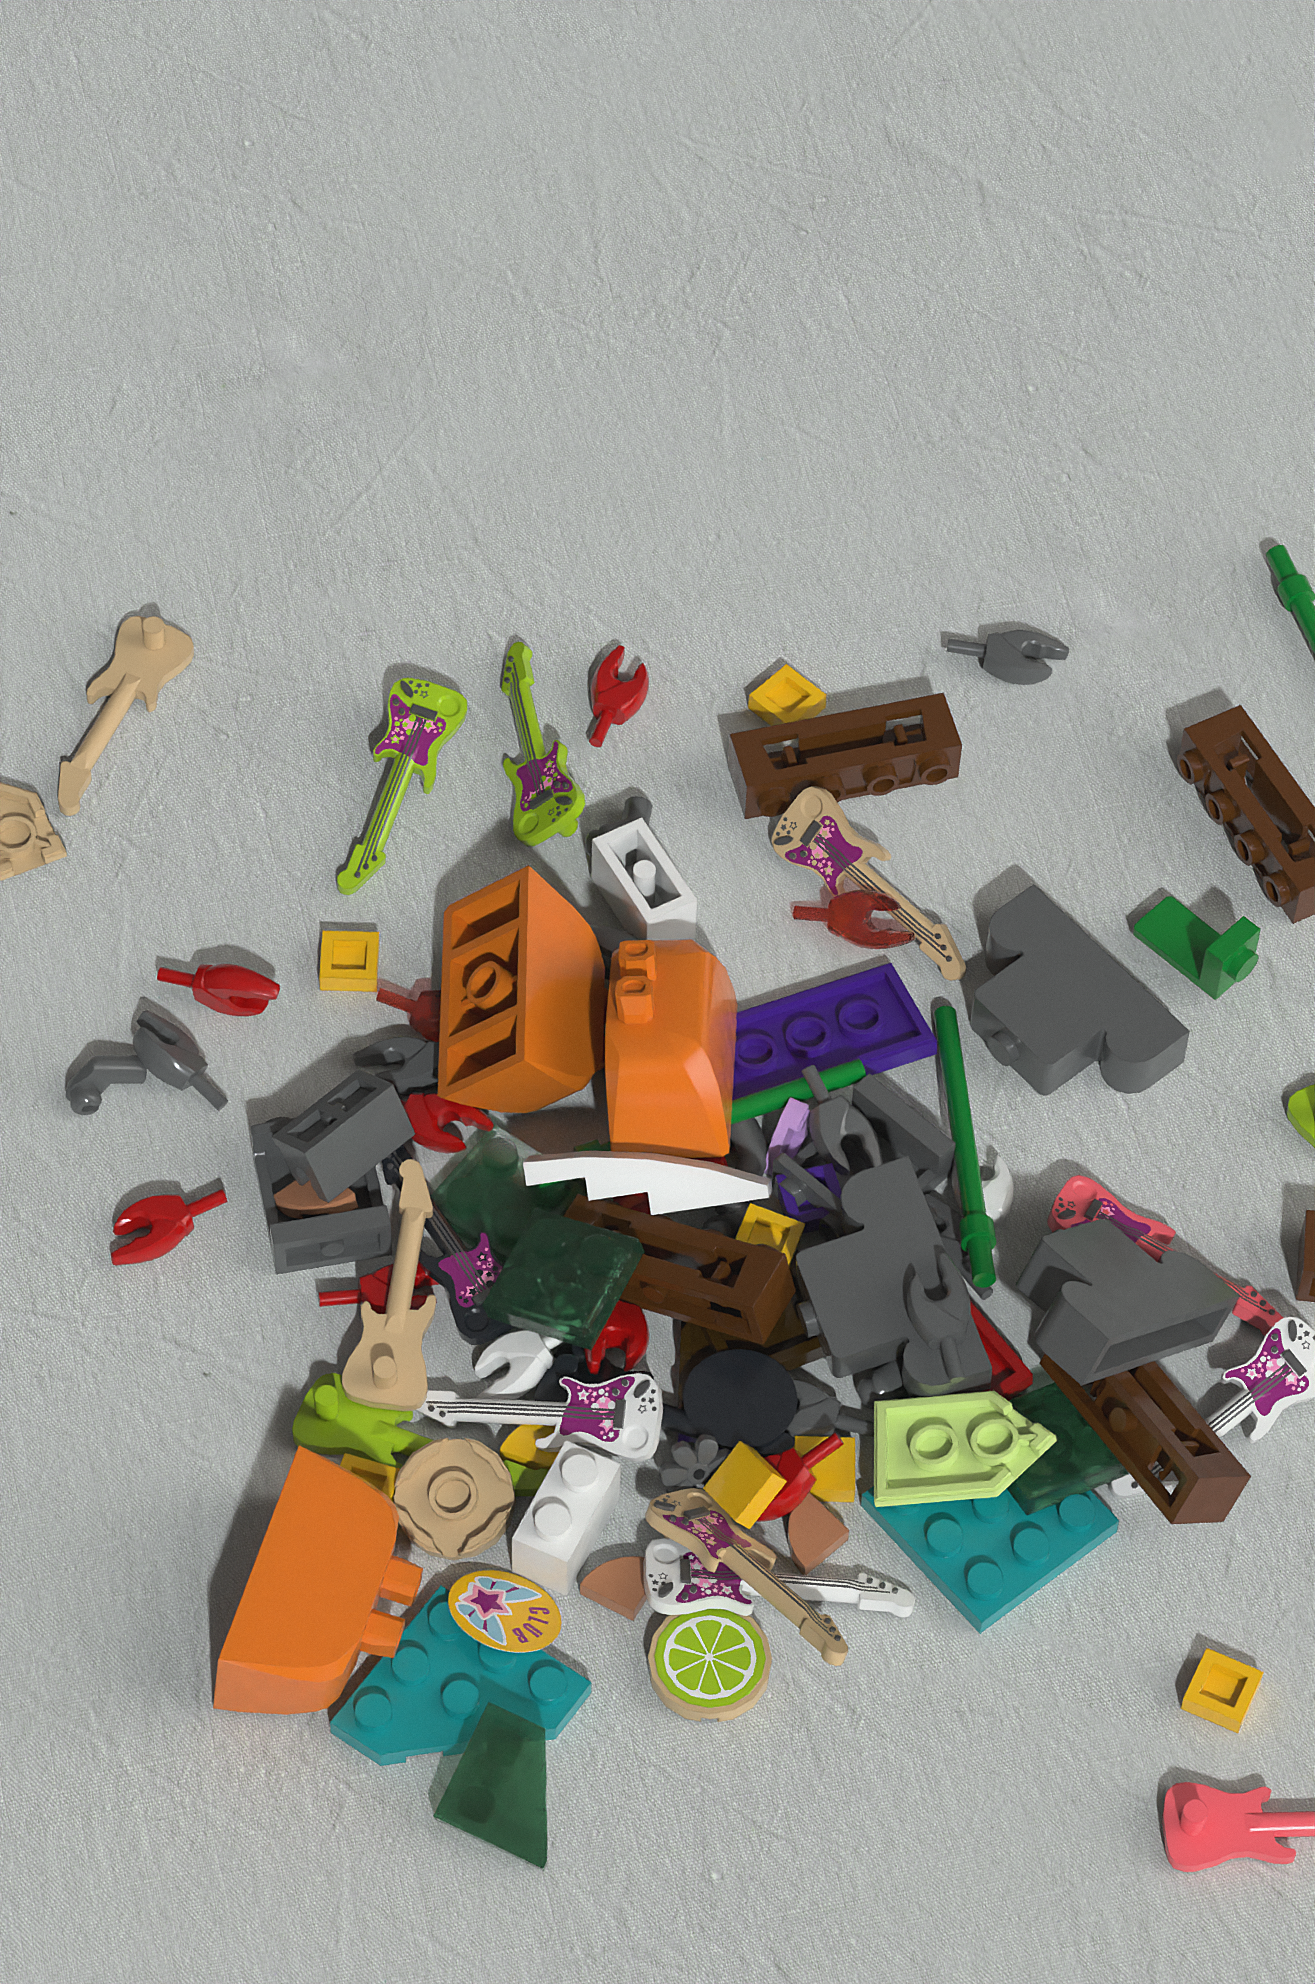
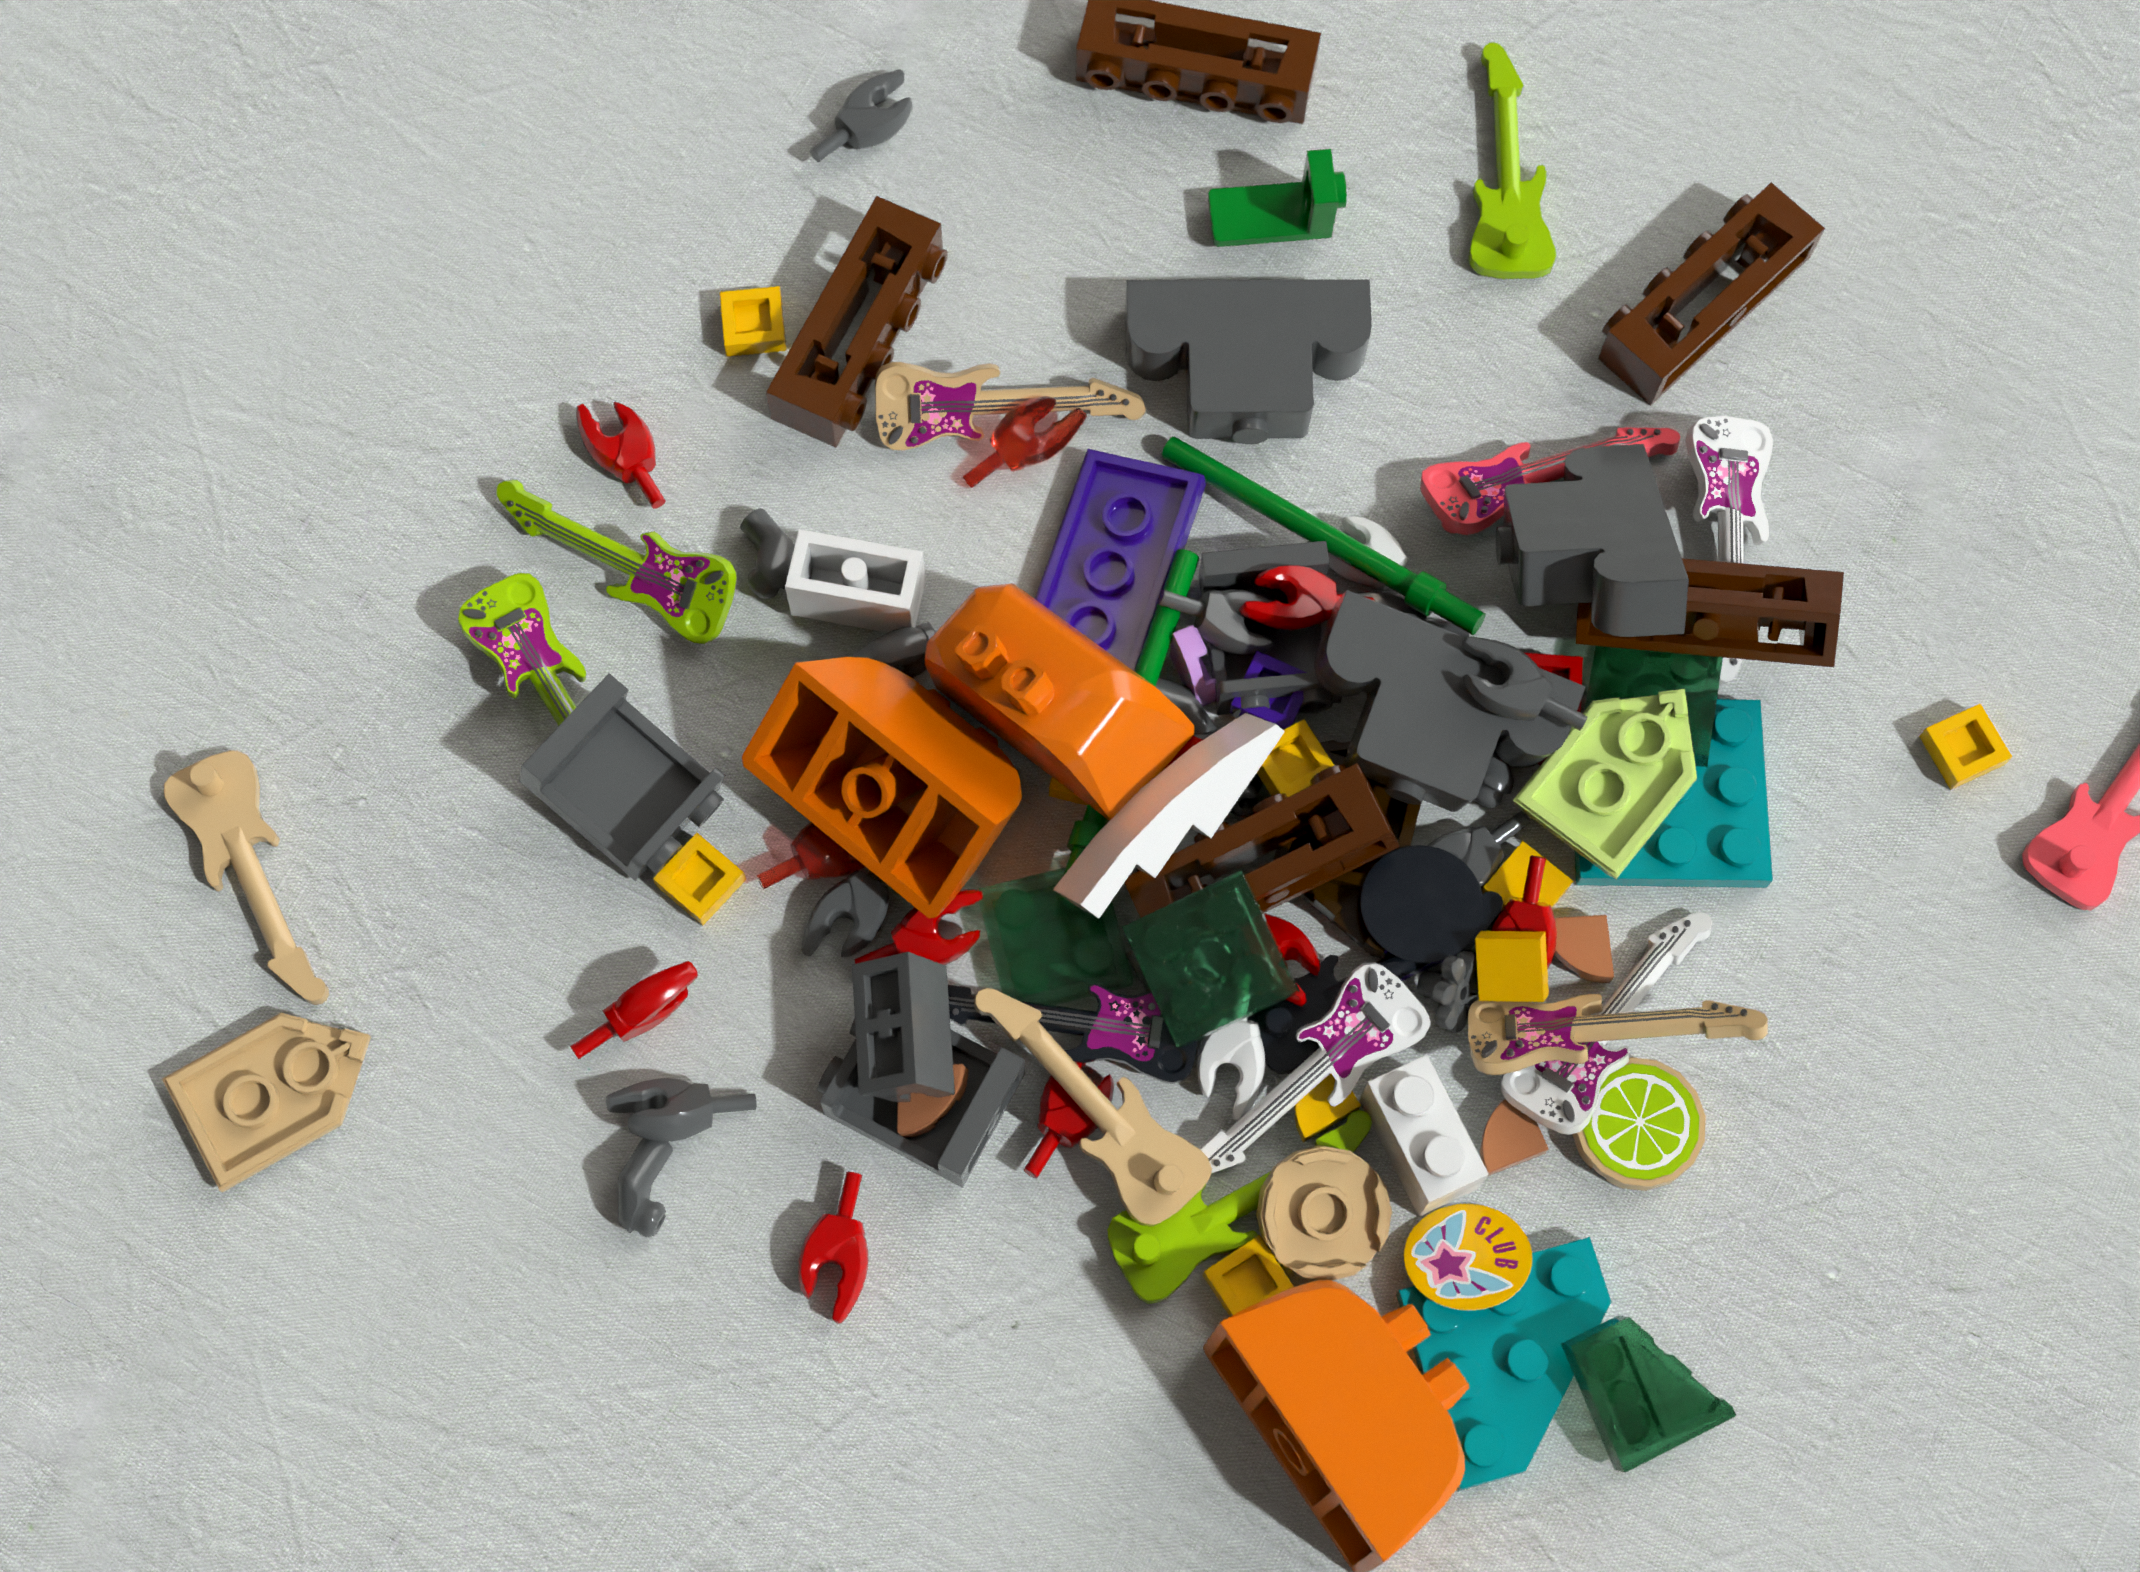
camera: 50 degrees left, 15 degrees up
(372, 856) = (621, 781): none -> dark grey panel
(904, 1144) = (1308, 593): none -> red hand

